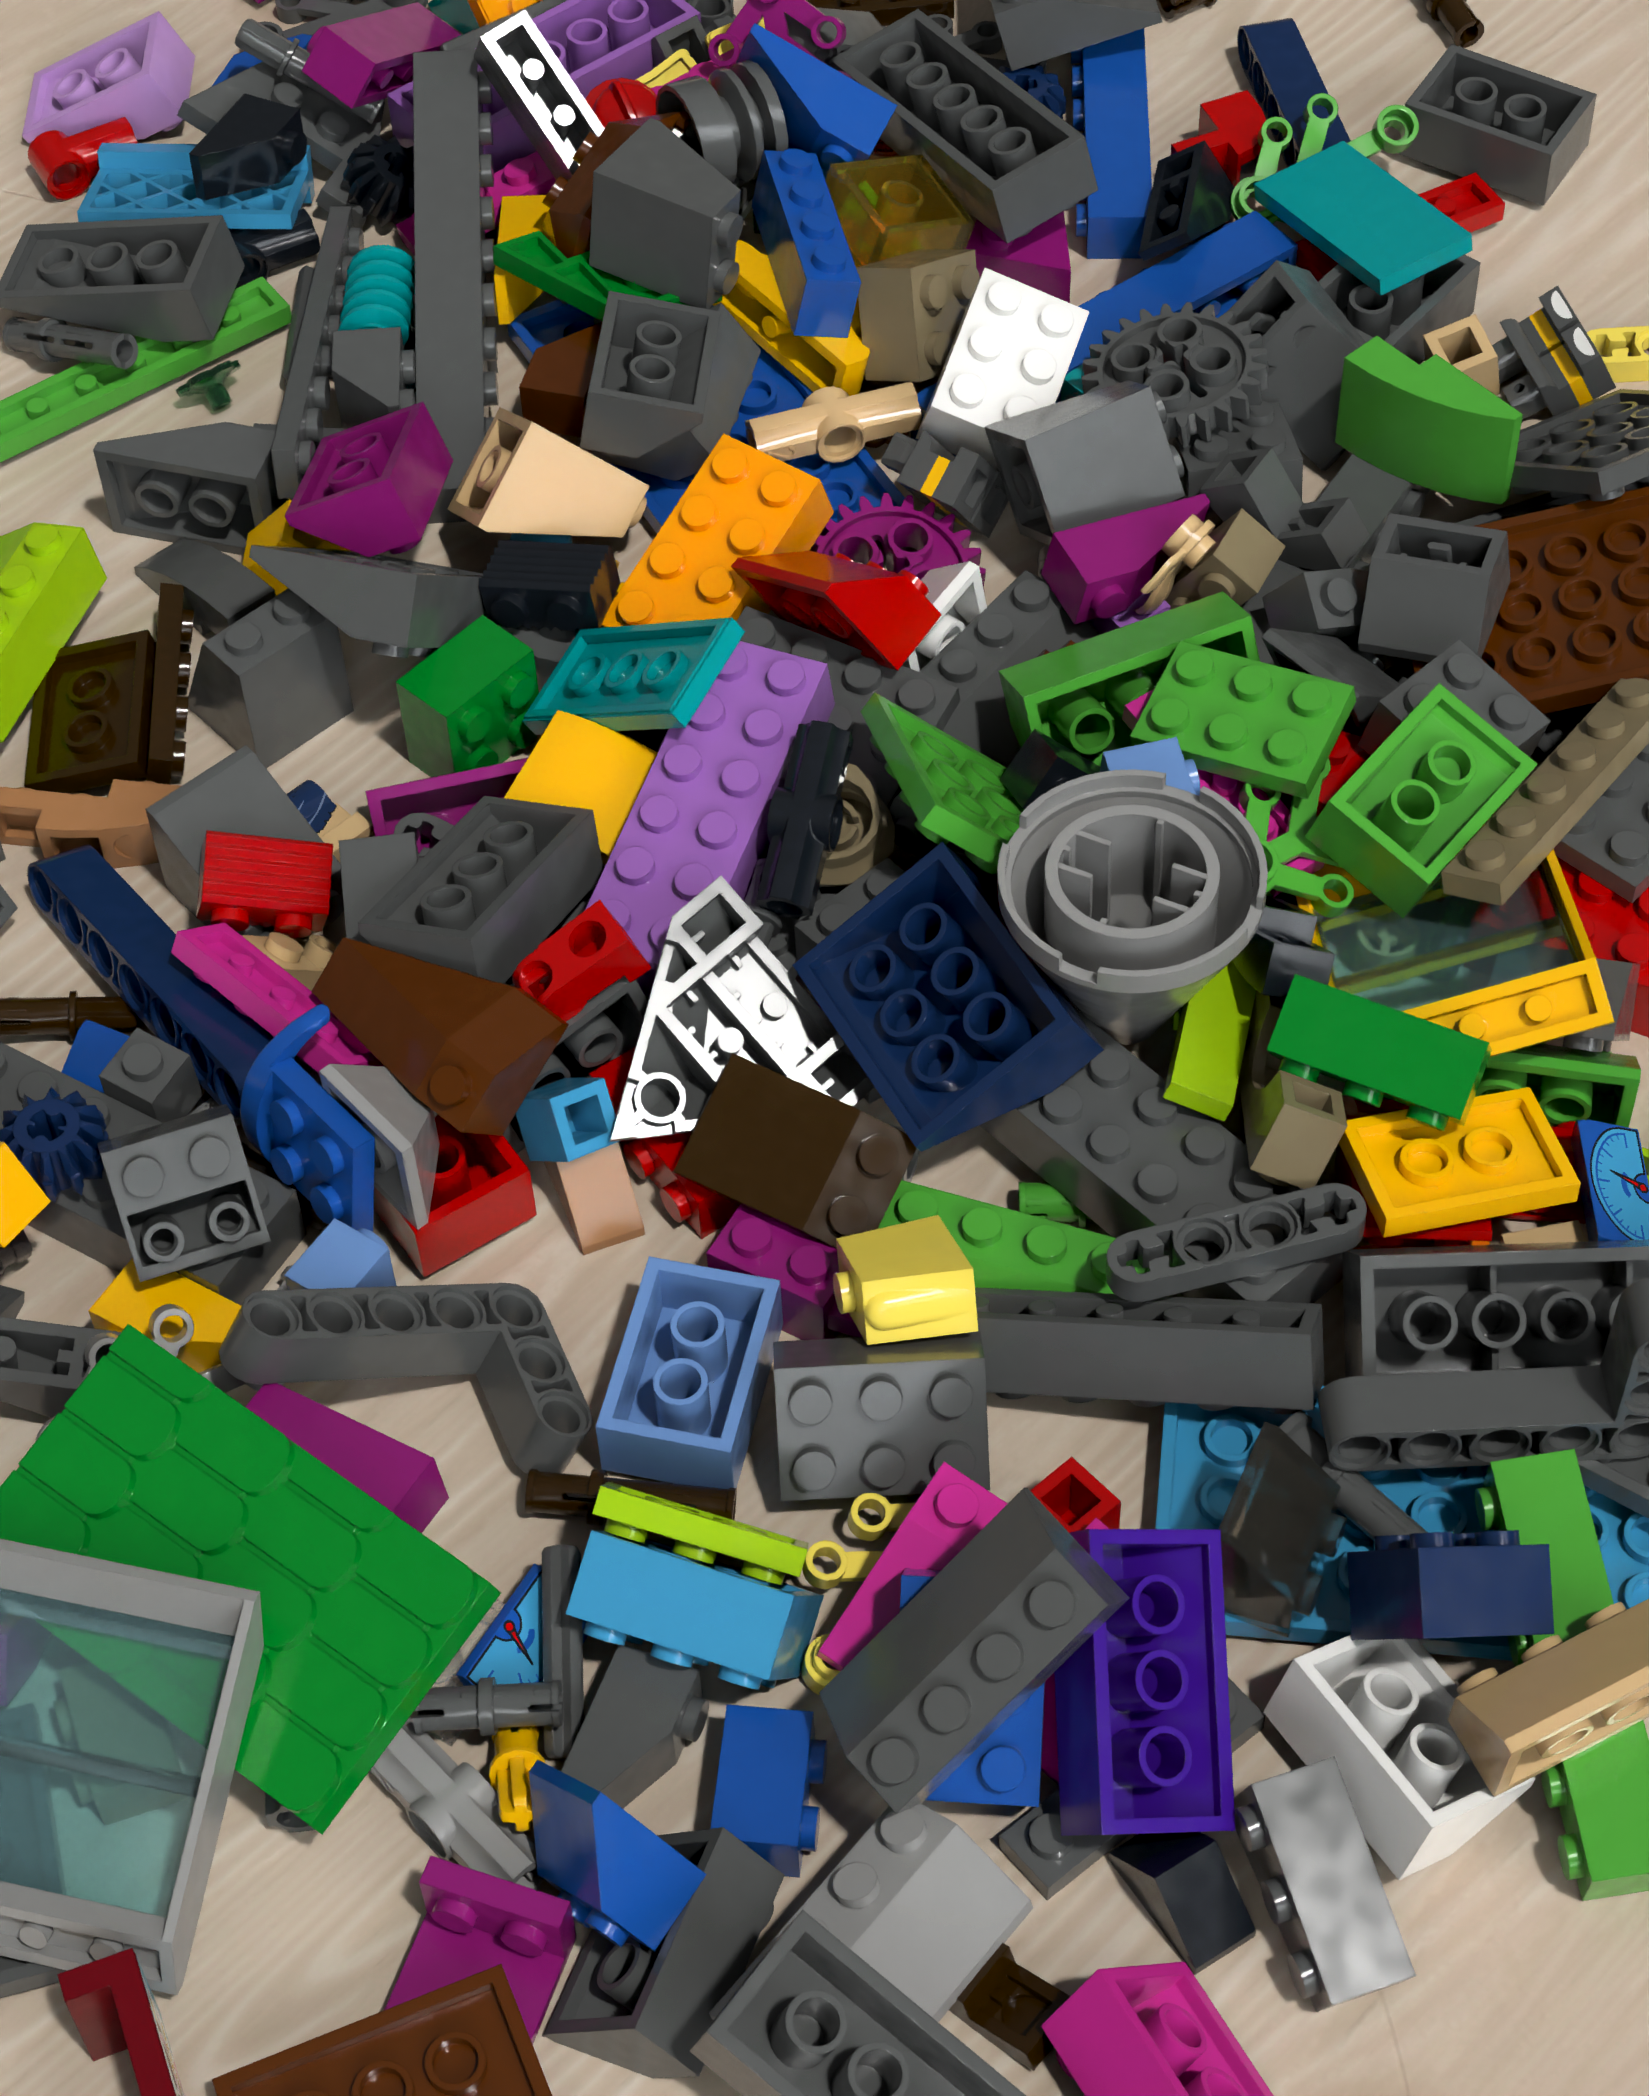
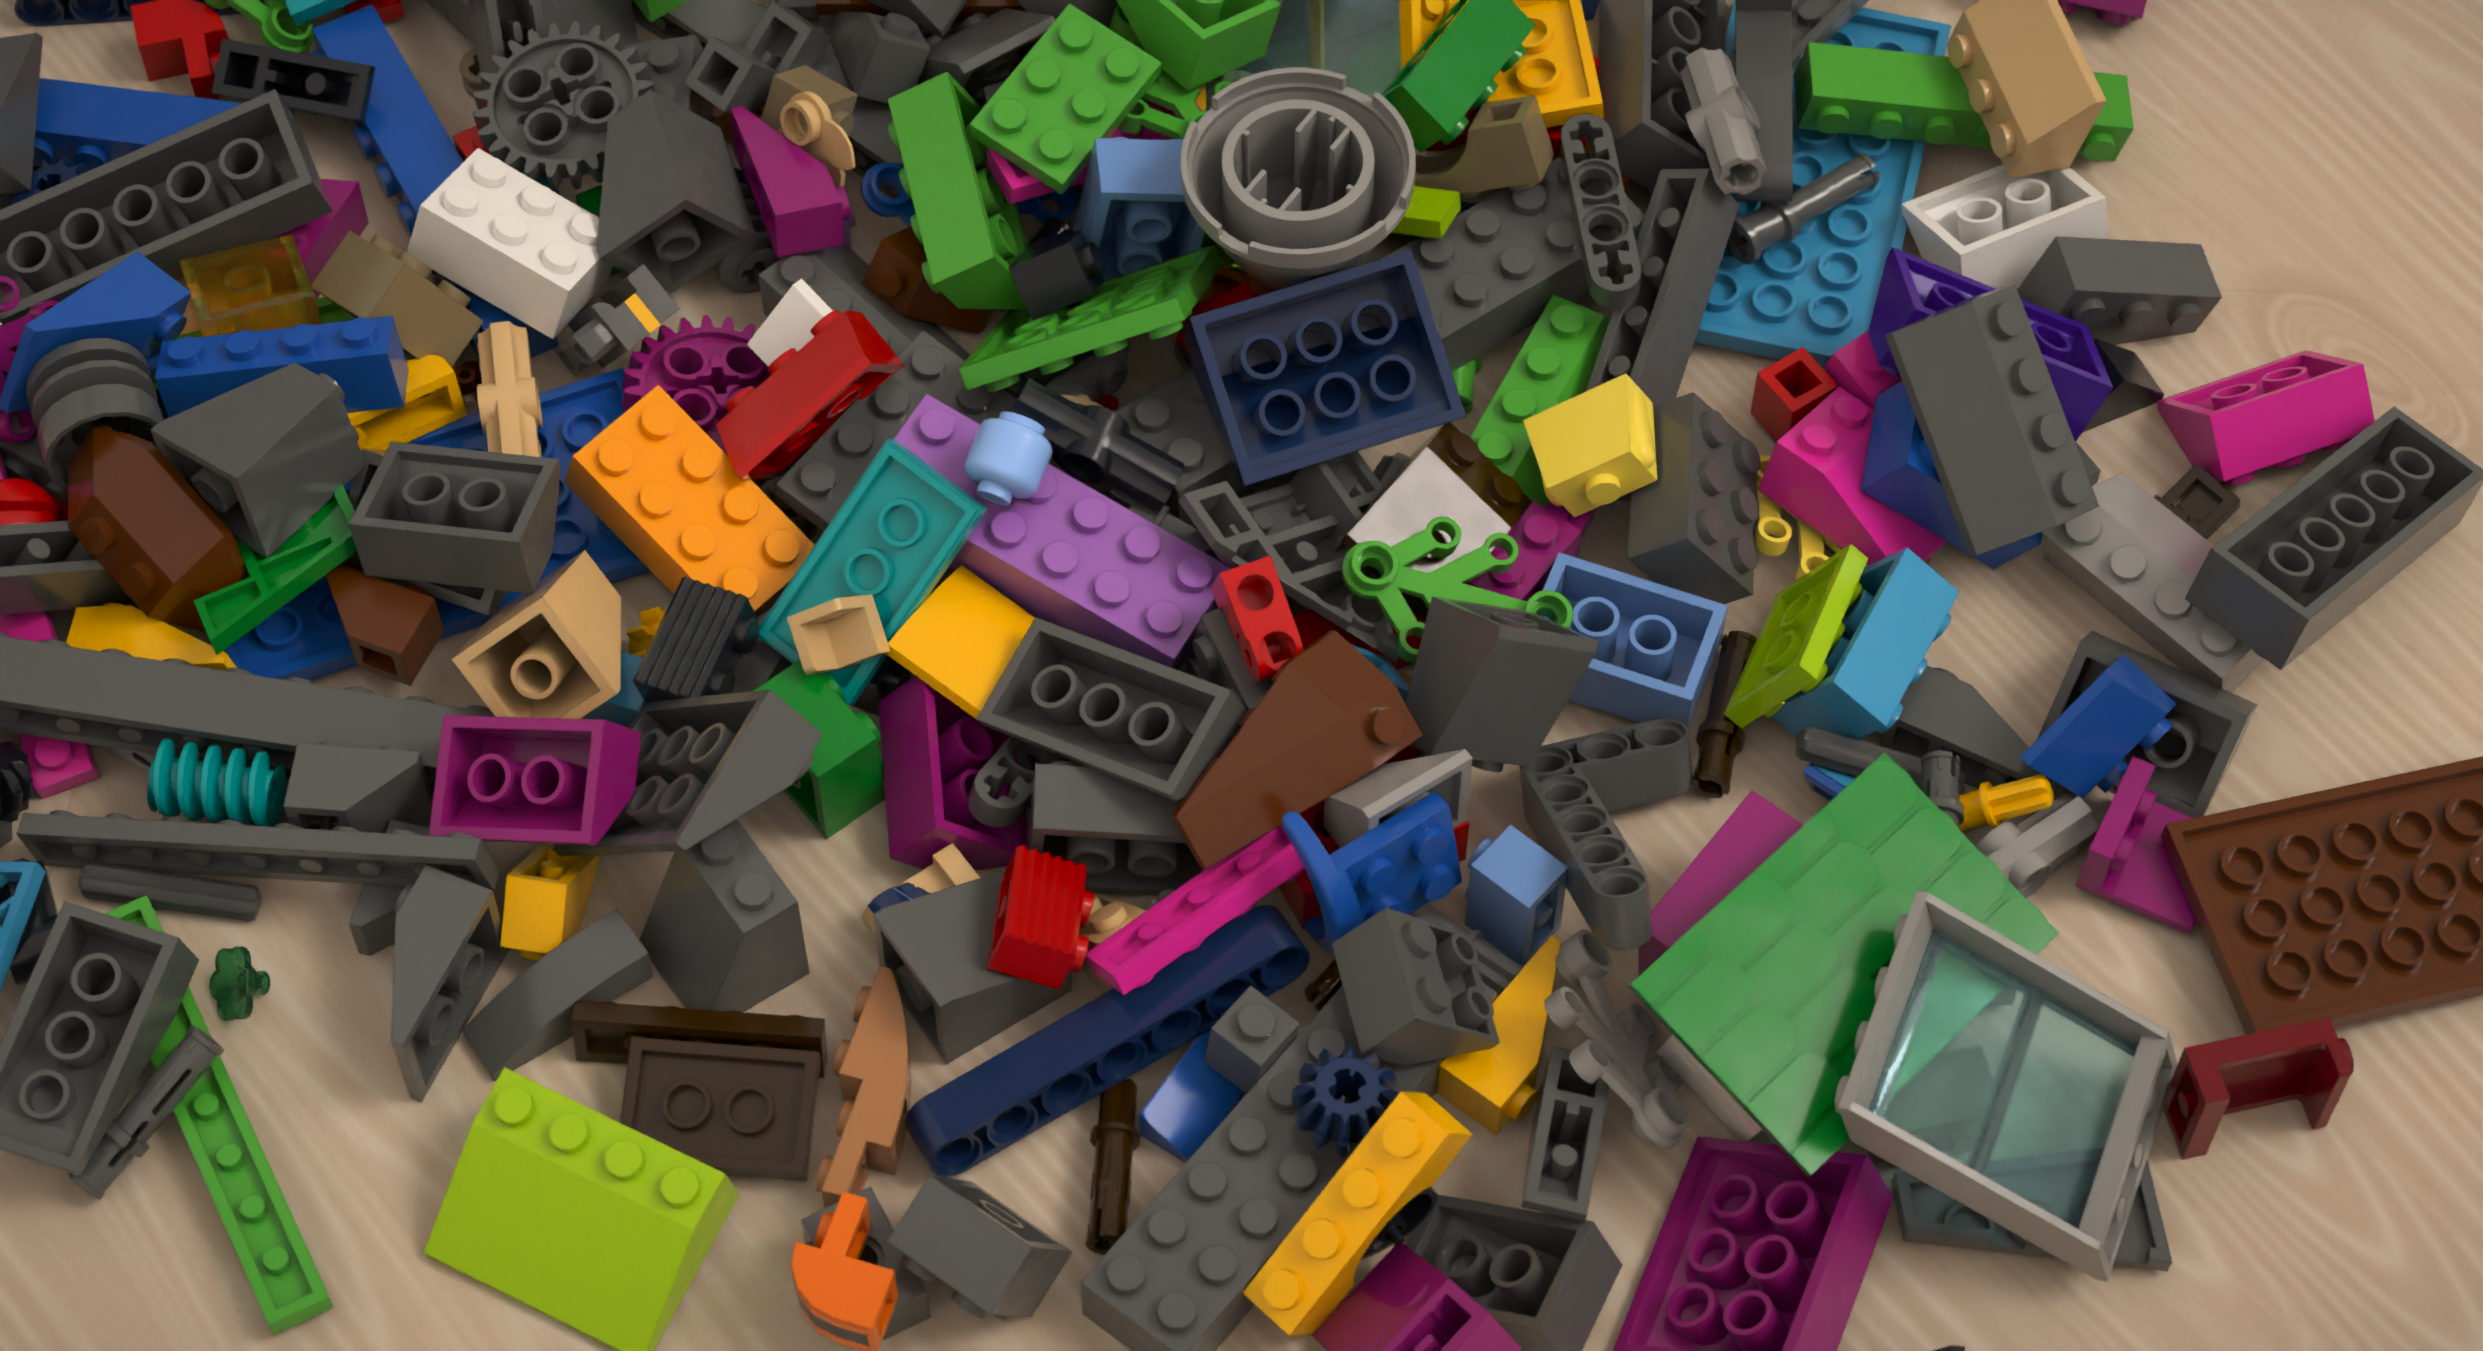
camera: 85 degrees left, 5 degrees up
(550, 660) = (838, 634): none -> tan panel
(558, 1193) = (1492, 681): none -> dark grey slope
(678, 1159) = (1443, 582): none -> bright green plant
(738, 724) = (1008, 458): none -> light blue head
(767, 1781) = (2010, 642): blue brick -> none
(1277, 1533) = (1833, 258): clear smoke slope -> none
(1359, 1347) = (1723, 121): none -> light grey piece
(1450, 1587) = (1927, 139): dark blue brick -> none

